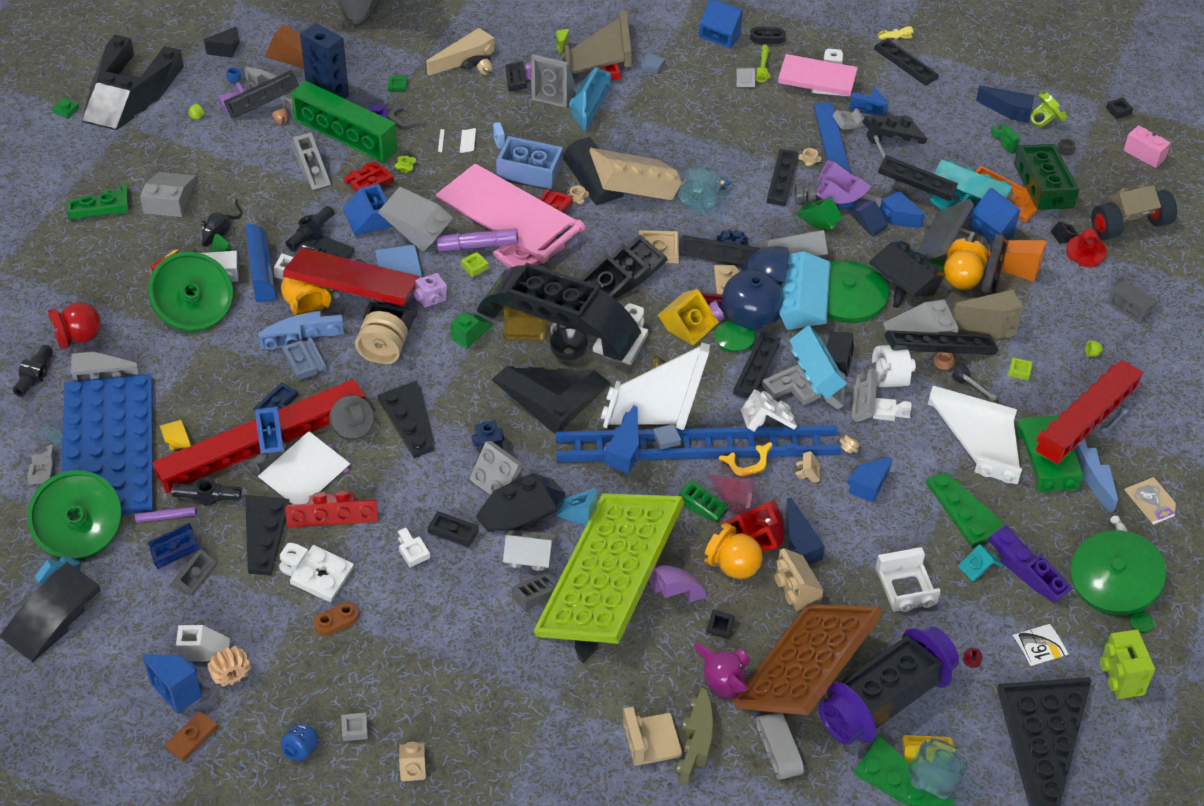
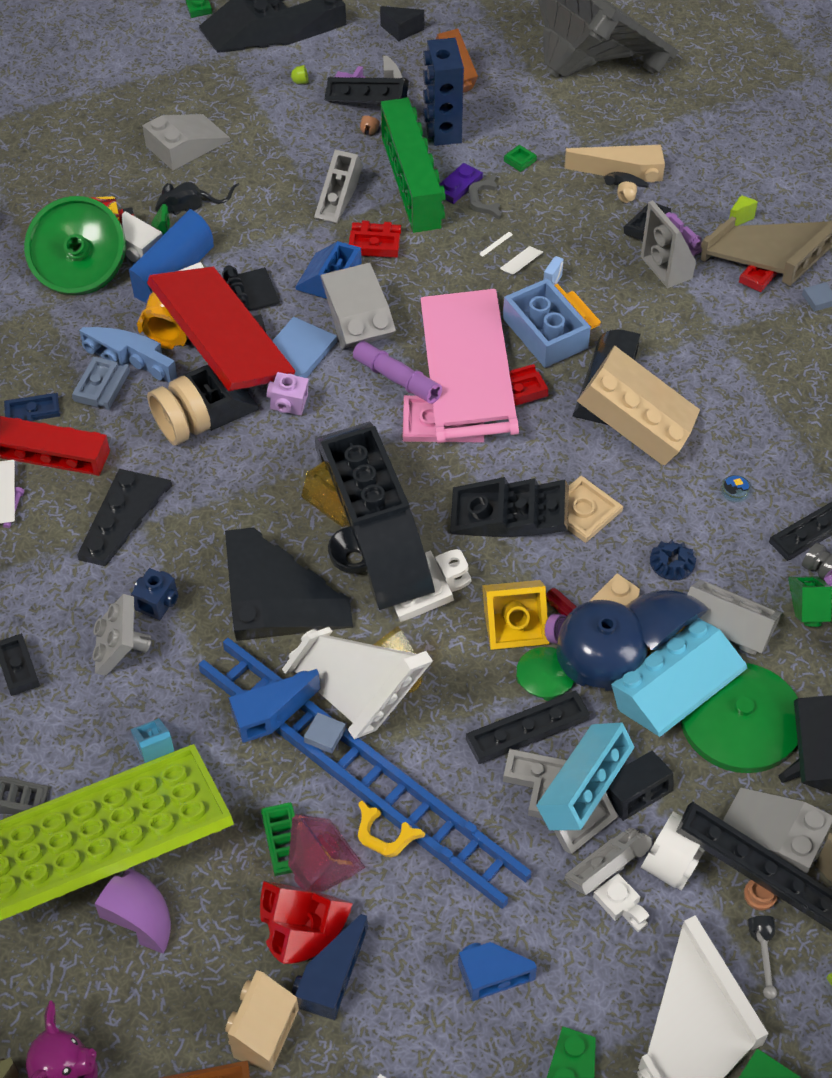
camera: 45 degrees right, 5 degrees up
(106, 203) = (119, 116): green wing -> none
(233, 74) = (374, 57): blue hinge -> none
(310, 228) = (258, 253): black pin -> none
(351, 417) = (62, 473): dark grey tile -> none
(405, 164) = (428, 246): lime plate -> none
(468, 328) = (283, 459): green slope -> none
(474, 264) = (368, 396): lime plate -> none
(521, 503) = (109, 691): black wedge -> none
(529, 549) = (55, 743): slope -> none
(578, 194) = (560, 386): tan plate -> none
(590, 97) = (699, 290): dark azure wedge -> none
(700, 189) = (694, 472): clear light blue brick -> none
(715, 250) = (637, 556): black tile -> none
(720, 623) = (138, 997): black slope -> none
(735, 553) = (230, 928): light orange tile -> none
(762, 404) = (470, 792): white bracket -> none
(809, 467) = (442, 897): tan tile -> none
(849, 444) = (521, 906): tan plate -> none

